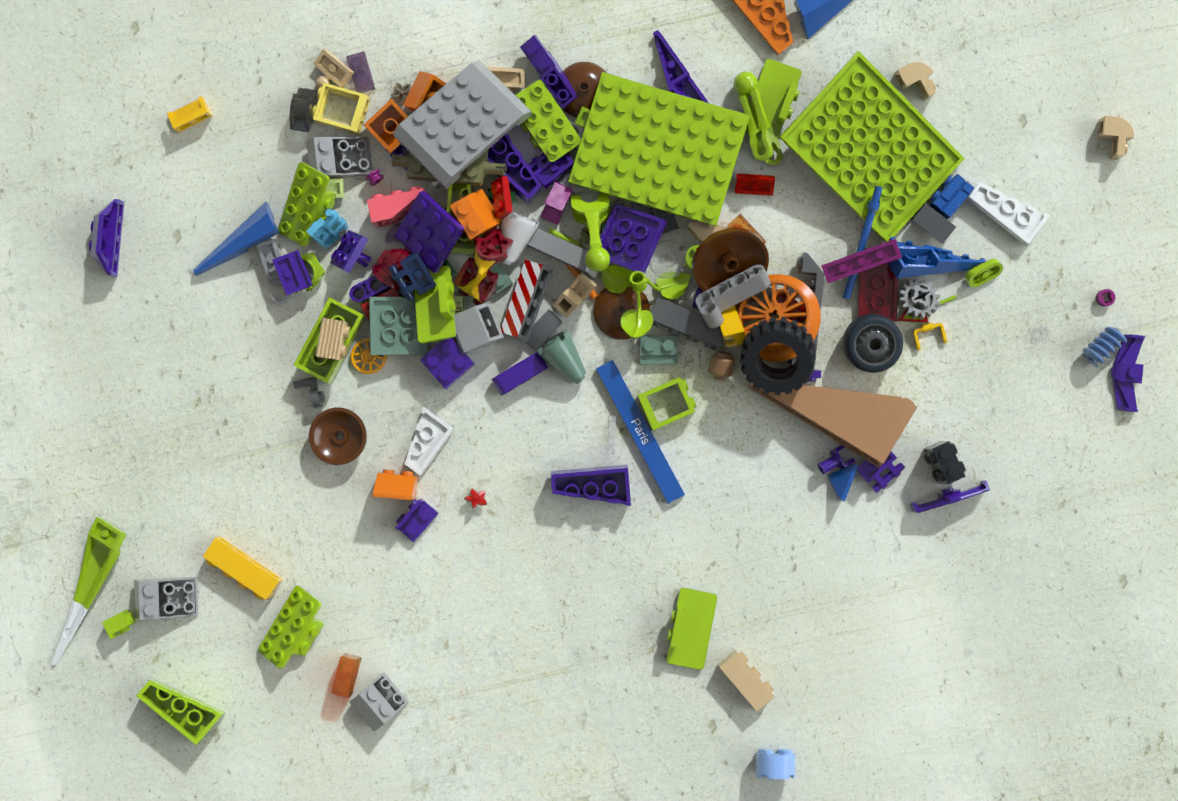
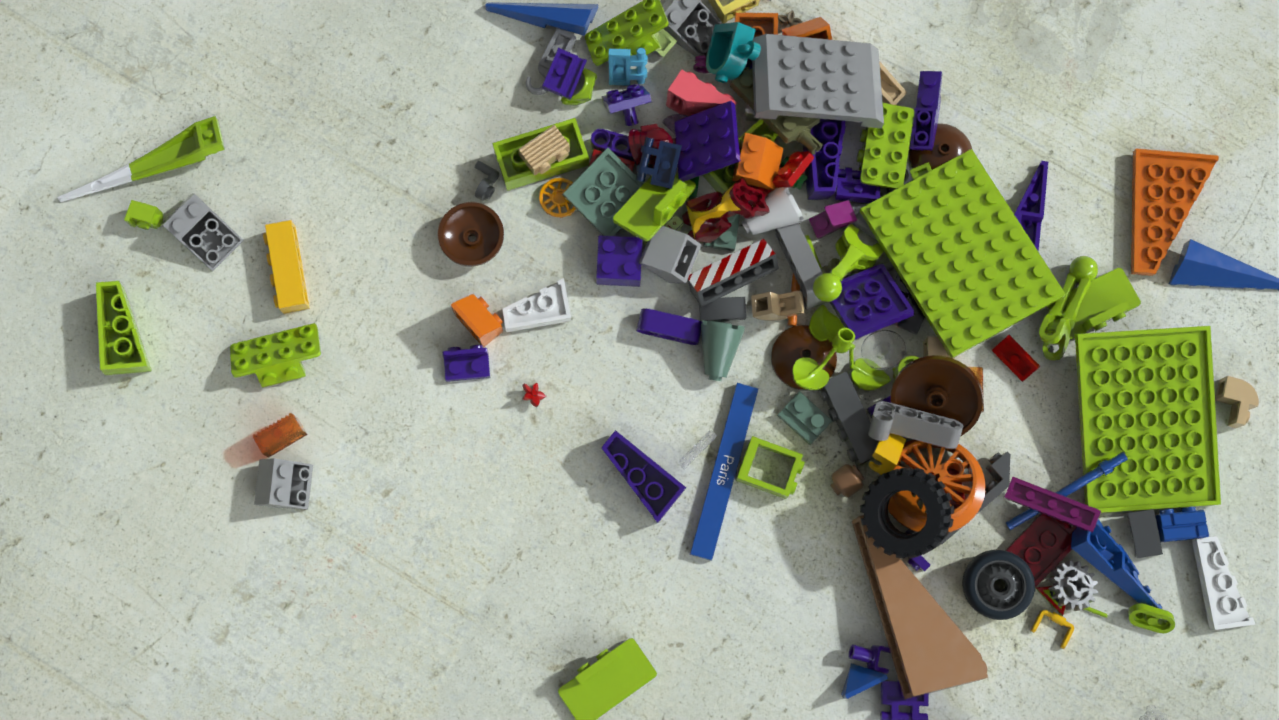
camera: 30 degrees right, 10 degrees down
(386, 156) = (730, 49): none -> teal piece

